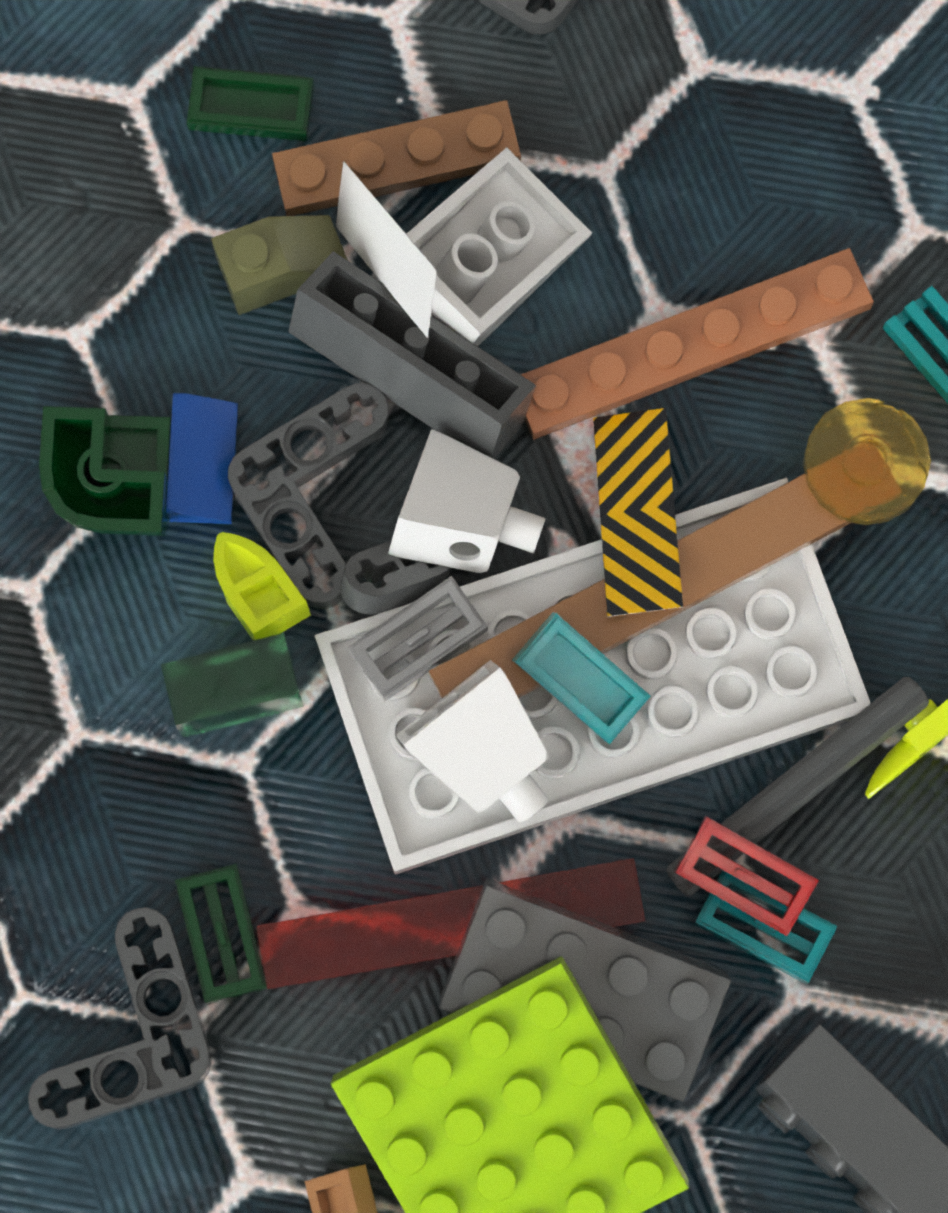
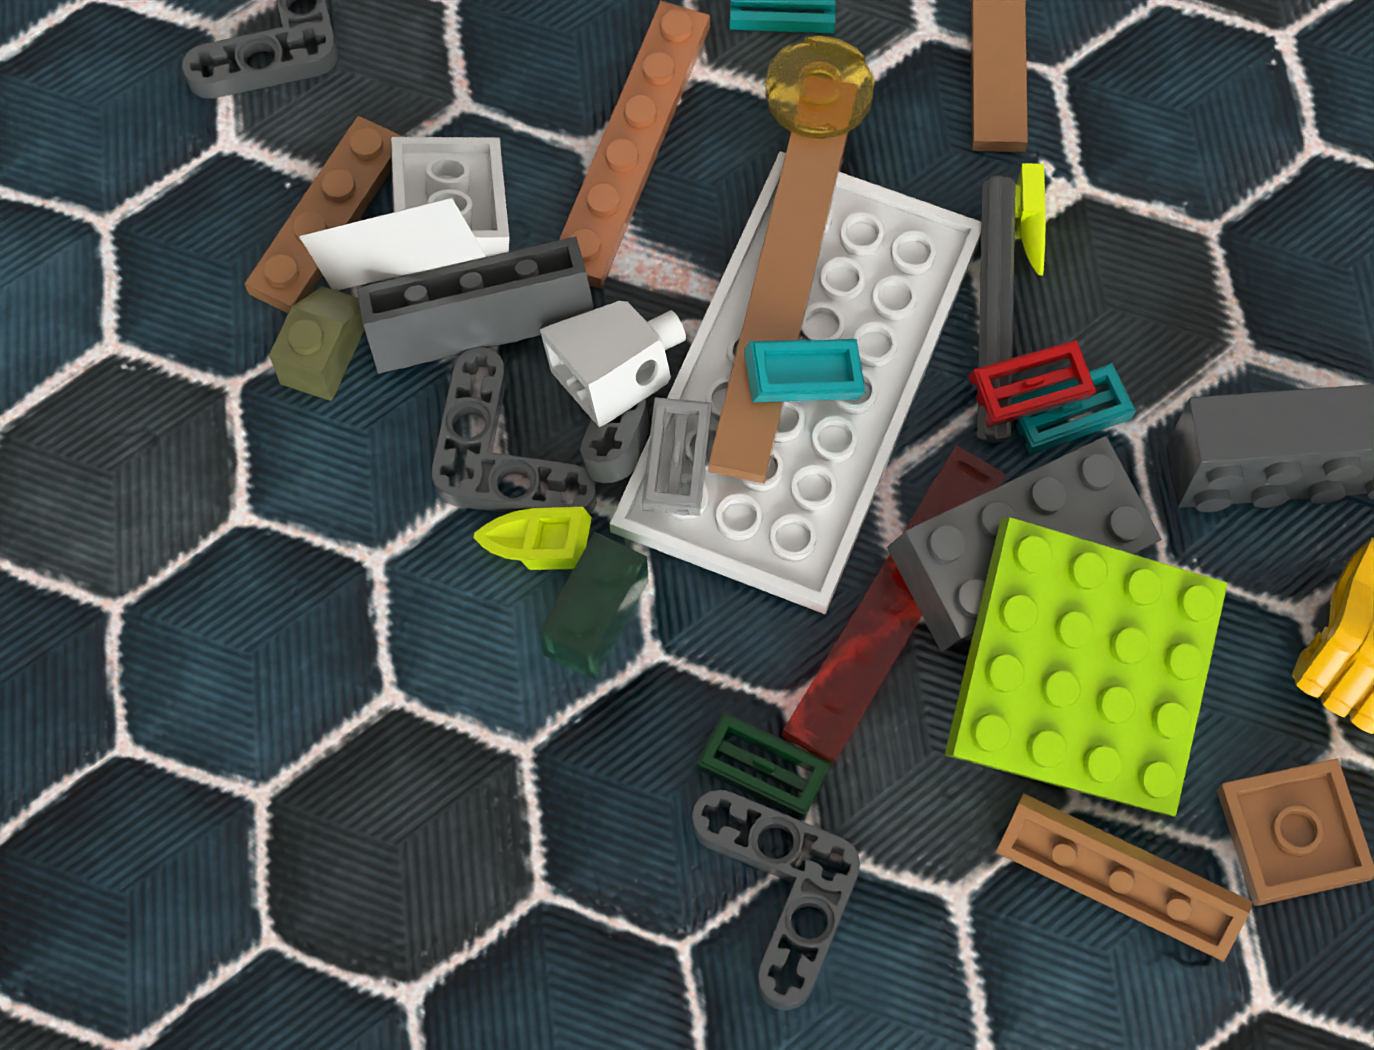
camera: 50 degrees left, 10 degrees down
(106, 469) = (362, 560): dark green brick -> none
(199, 458) = (410, 503): blue slope -> none
(250, 103) = (194, 273): dark green tile -> none
(481, 744) = (794, 463): white torso -> none
(637, 513) = (720, 253): sticker -> none

